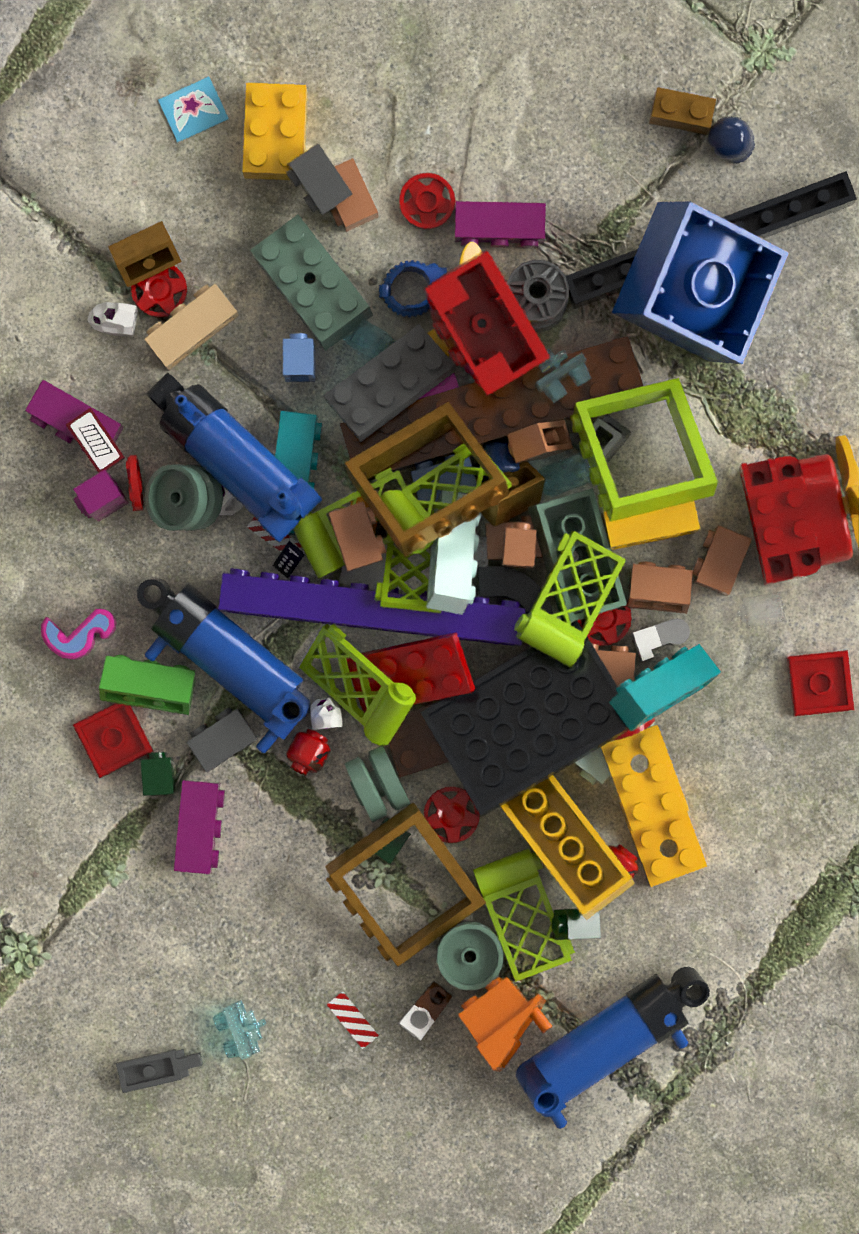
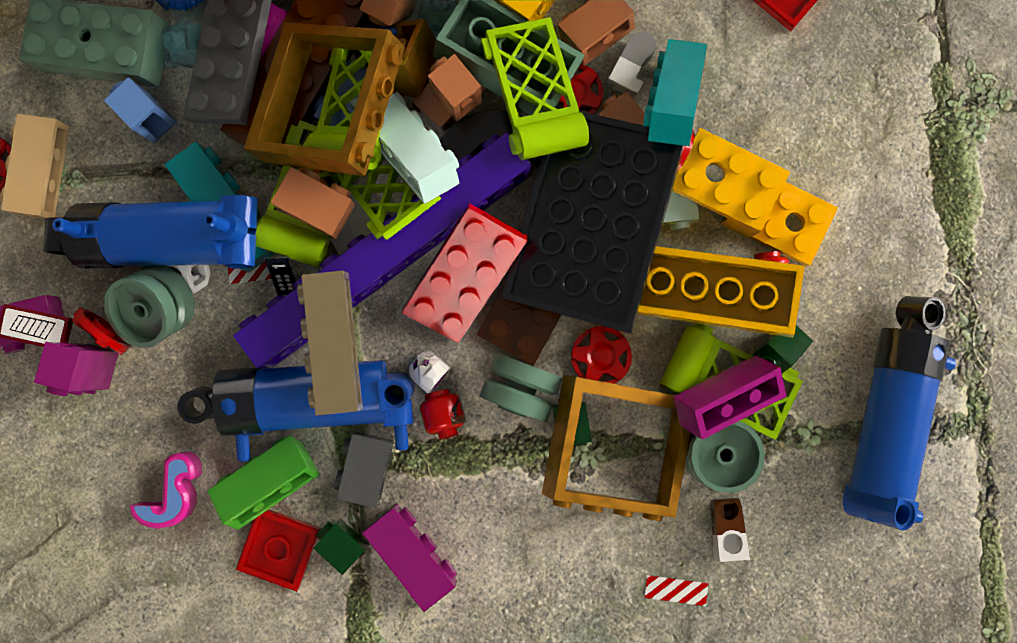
camera: 40 degrees left, 0 degrees up
(283, 639) = (331, 343): none -> dark tan brick
(389, 704) = (470, 315): lime piece -> none
(501, 1019) = (800, 484): orange piece -> none
(508, 919) = (729, 397): none -> magenta brick

